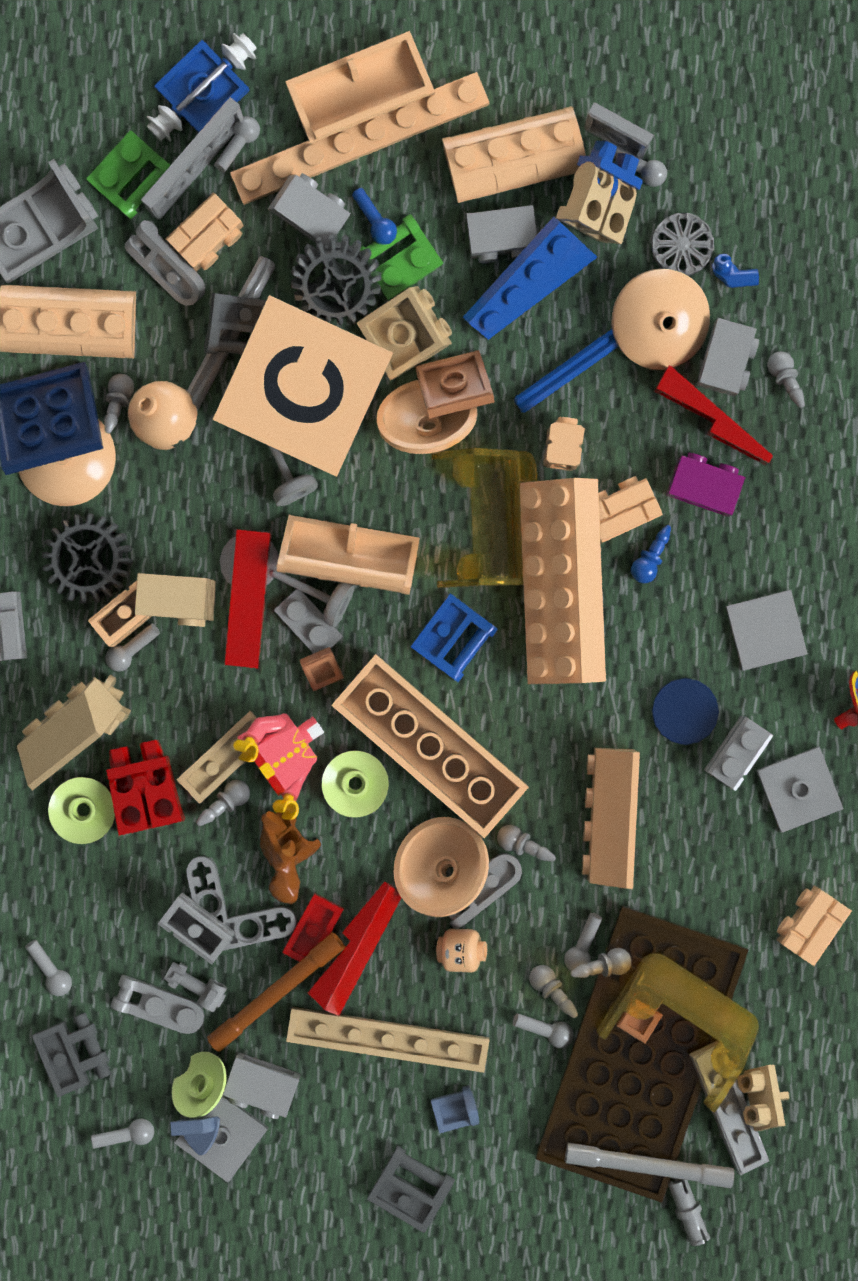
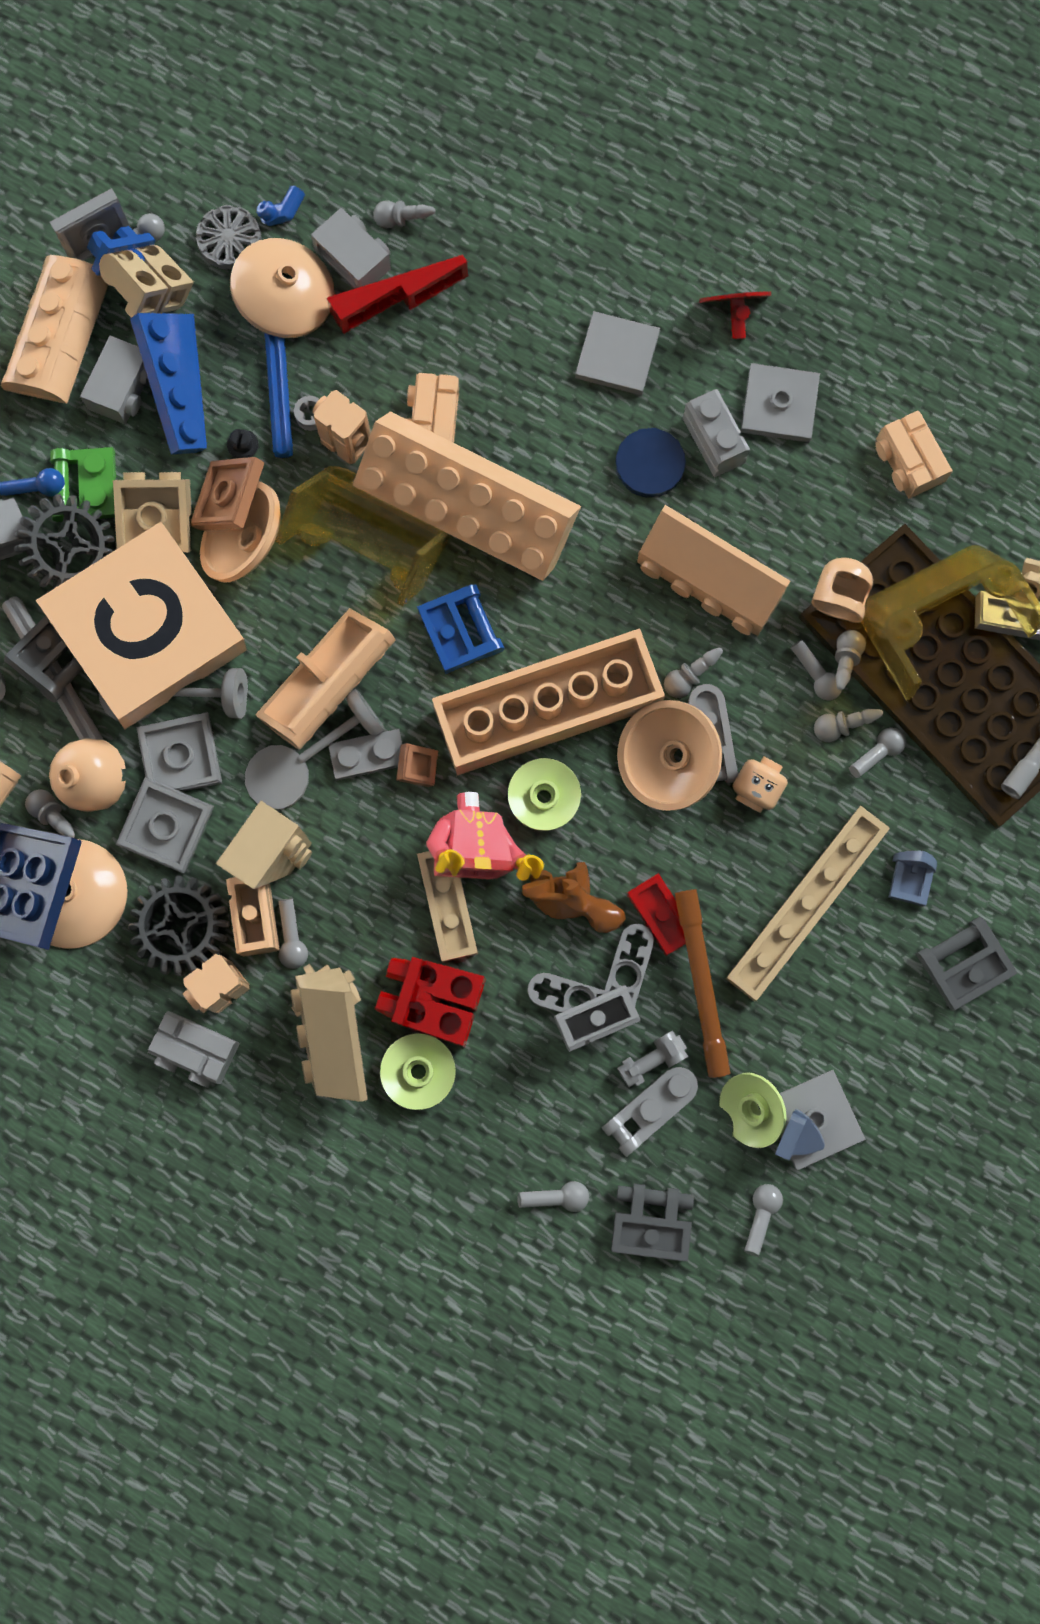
camera: 60 degrees left, 10 degrees down
(54, 618) = (214, 985): none -> light nougat brick
(159, 498) = (165, 825): none -> light grey tile
(222, 473) = (180, 752): none -> light grey tile
(235, 794) = (488, 916): light grey bar -> none
(247, 598) = (309, 795): red slope -> none
(261, 1086) = (788, 1049): light grey piece -> none
(364, 934) = (692, 866): red slope -> none
(508, 366) = (242, 444): none -> black piece
(559, 399) = (305, 402): none -> light grey bush
(639, 1028) = (924, 655): nougat tile -> none
(645, 568) = (498, 424): blue bar -> none
(657, 932) = (843, 589): none -> light nougat helmet
(705, 484) = (455, 330): magenta piece -> none

